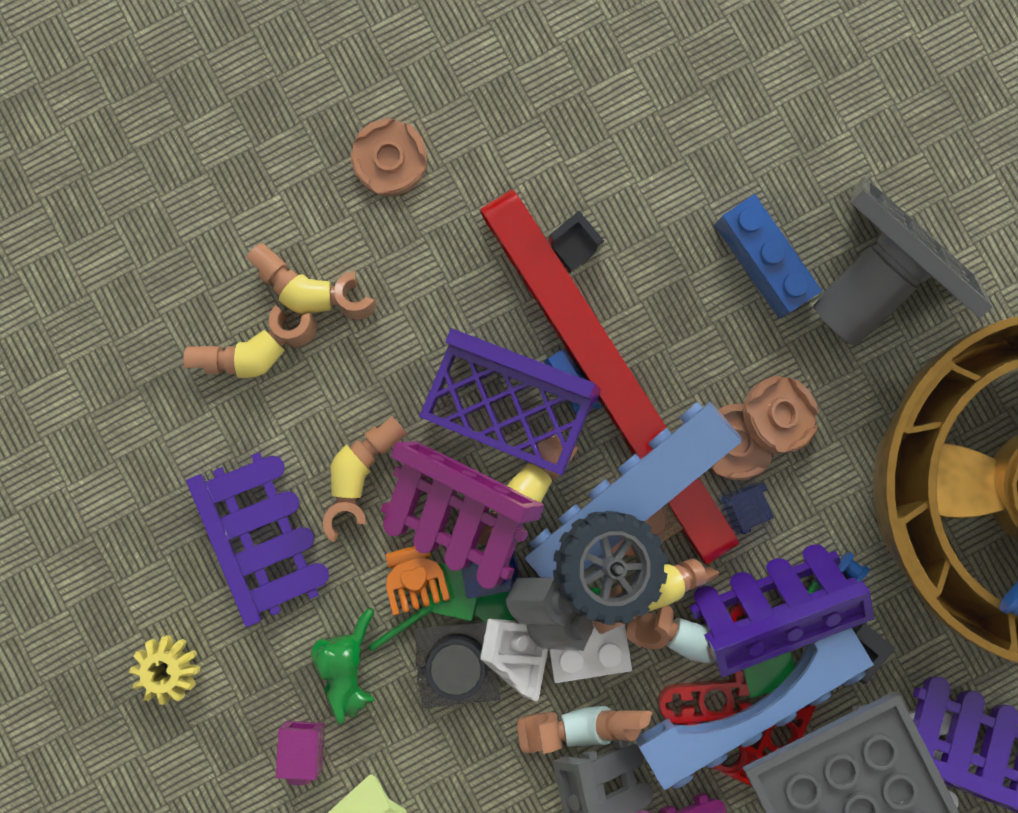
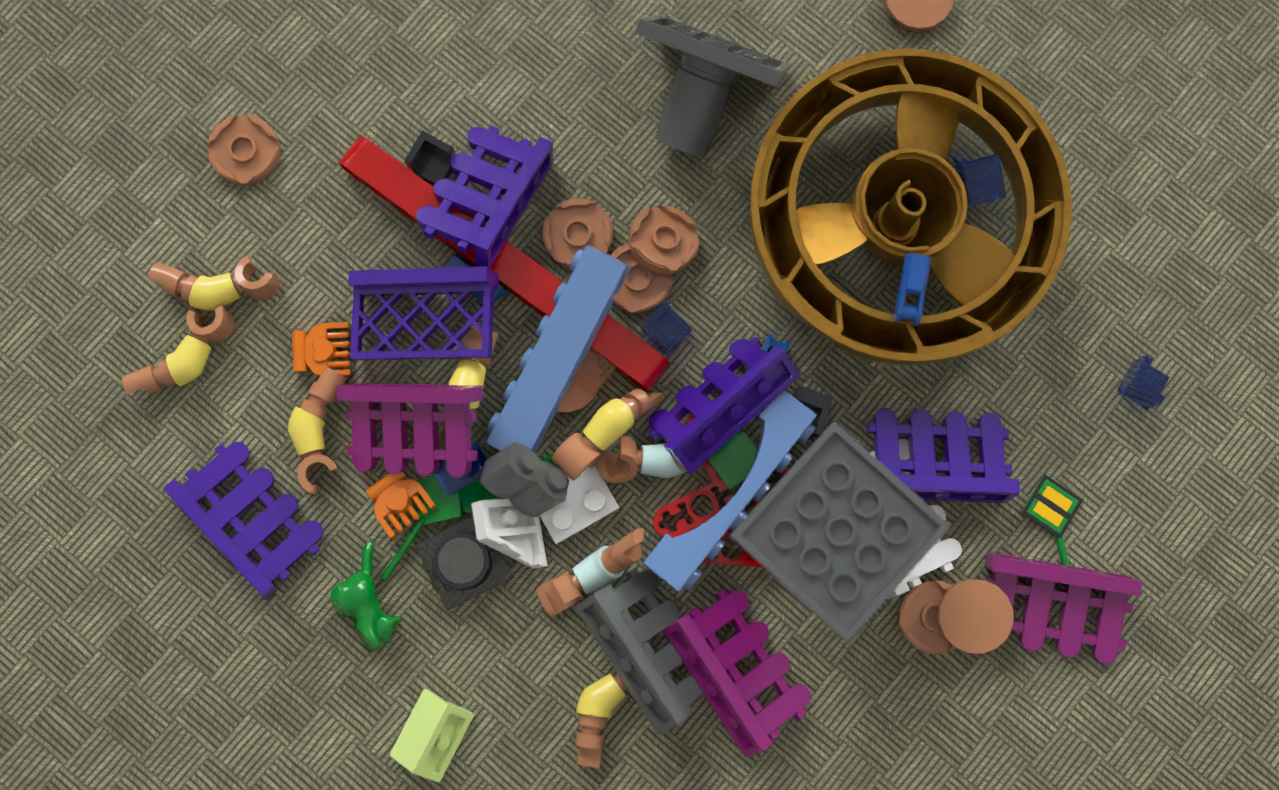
camera: 25 degrees left, 5 degrees down
(151, 670) = (195, 676): light yellow gear -> none
(300, 751) = (352, 691): magenta brick -> none
(388, 393) = (318, 351): none -> orange piece
(612, 314) = (500, 215): none -> dark purple fence
(648, 566) = (568, 379): black wheel -> none
(694, 372) = (574, 226): none -> nougat tile
(767, 256) = (600, 111): blue brick -> none

